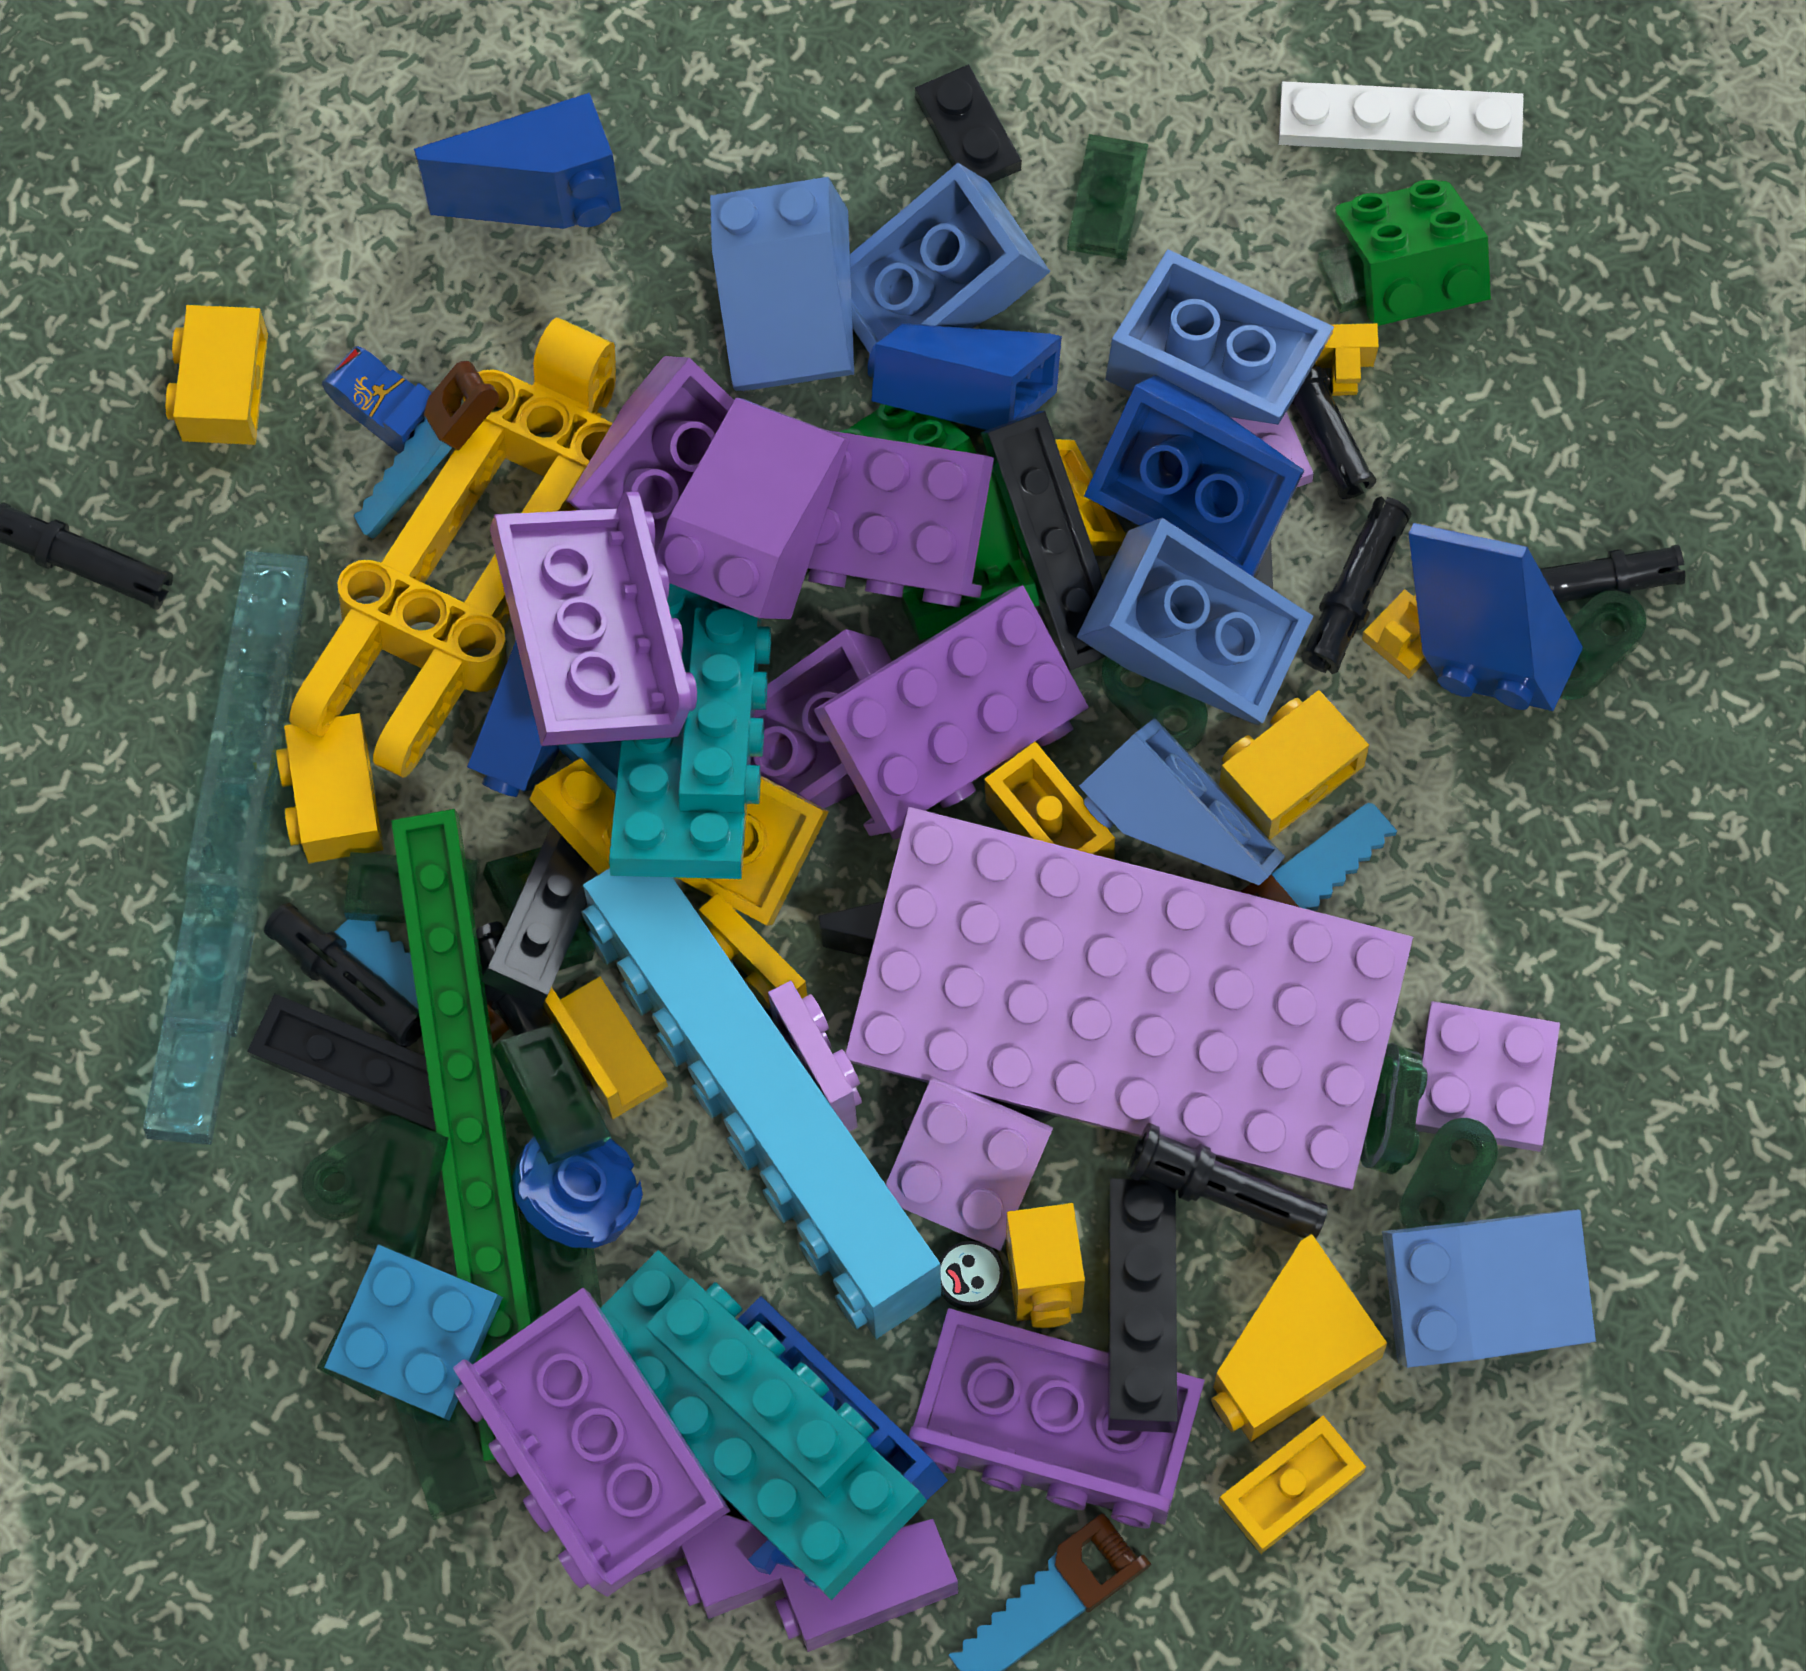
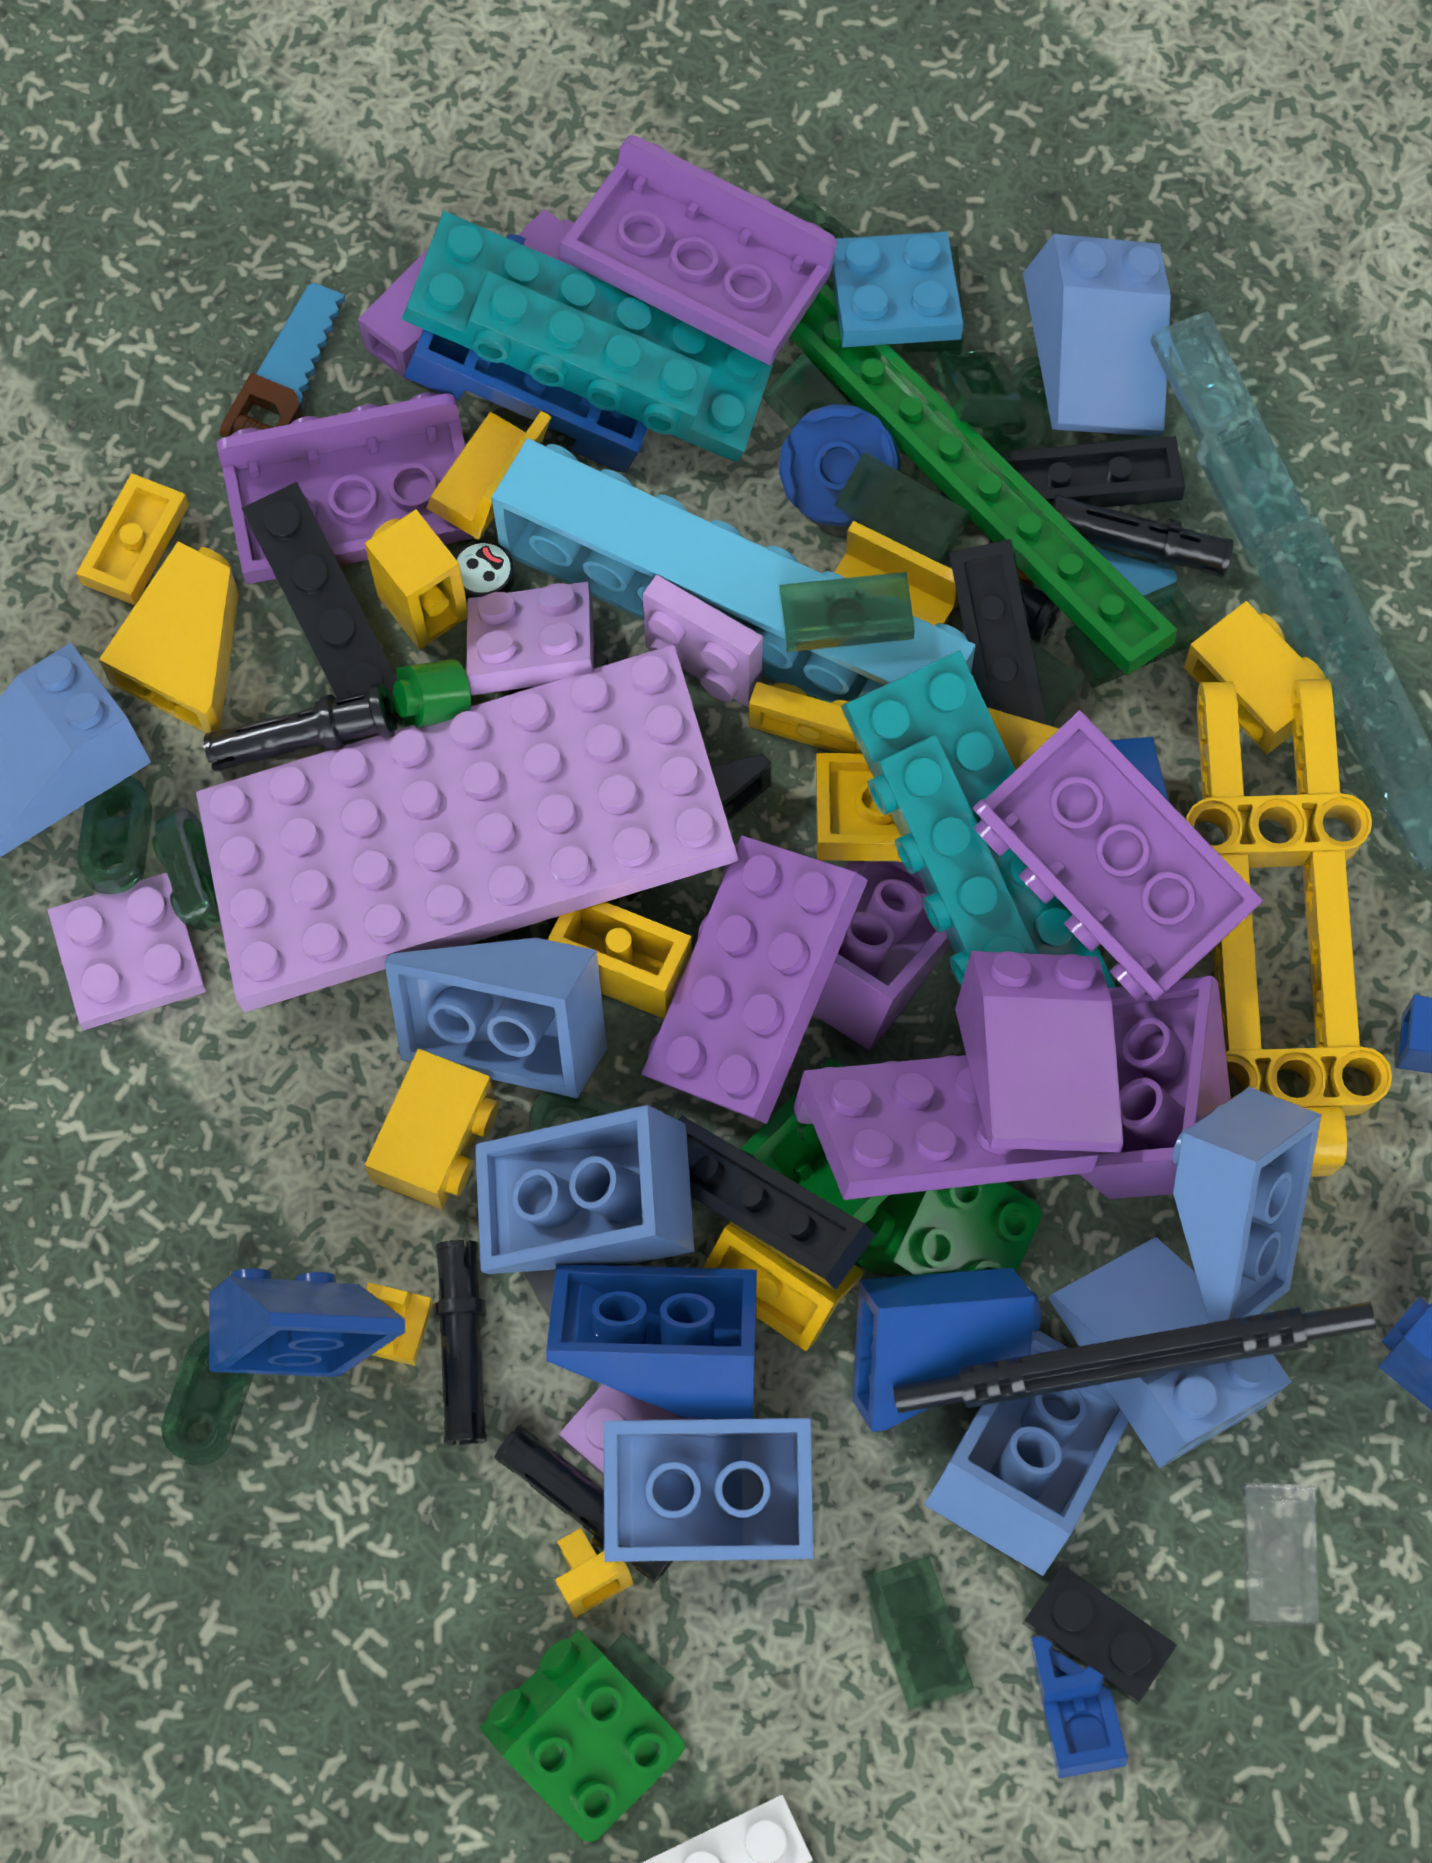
camera: 150 degrees right, 0 degrees up
(252, 1190) = (1093, 331): none -> medium blue slope
(445, 426) = (1378, 1016): piece -> none
(663, 316) = (1244, 1199): none -> medium blue slope
(684, 958) = (846, 612): none -> clear green plate
(794, 109) = (1280, 1555): none -> clear plate
(829, 252) = (1134, 1357): none -> black axle
(914, 1343) = (471, 481): none -> yellow panel
(1020, 82) = (1077, 1714): none -> blue slope
(1088, 1150) = (431, 692): none -> green plate
(1326, 861) = (360, 1064): dark azure piece -> none
(1616, 573) = (241, 1465): black pin -> none

